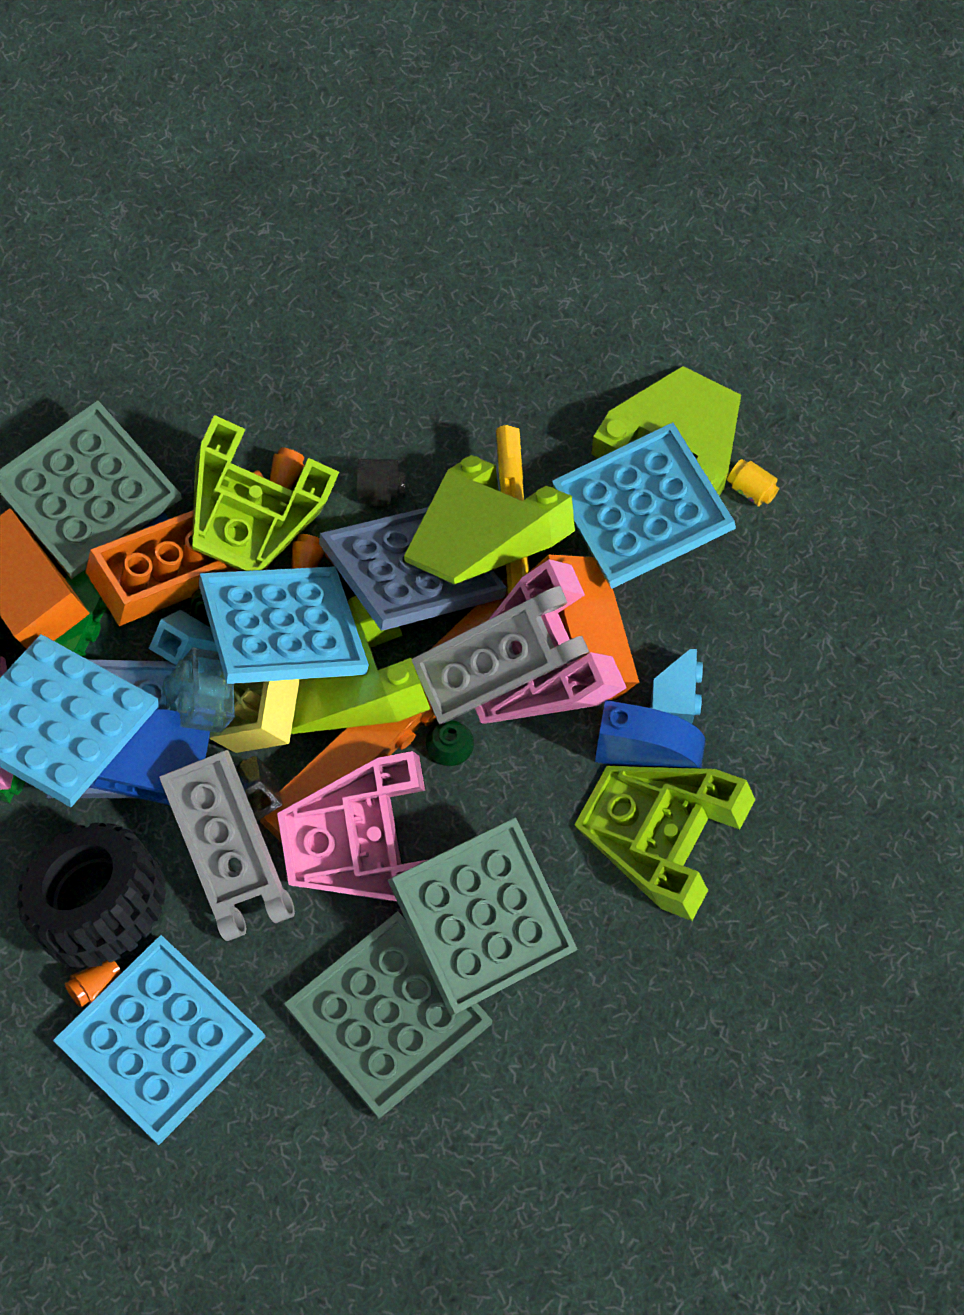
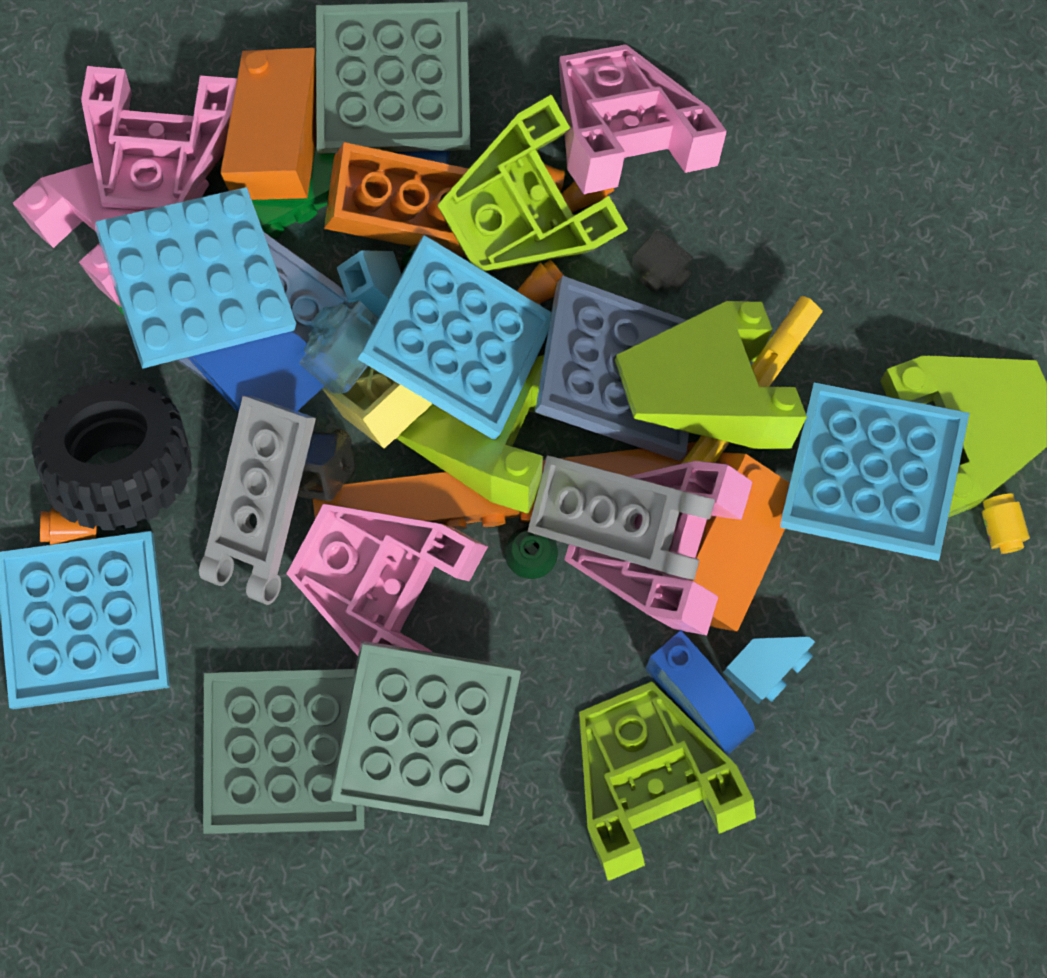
camera: 40 degrees right, 10 degrees up
(275, 397) = (627, 109): none -> bright pink wedge

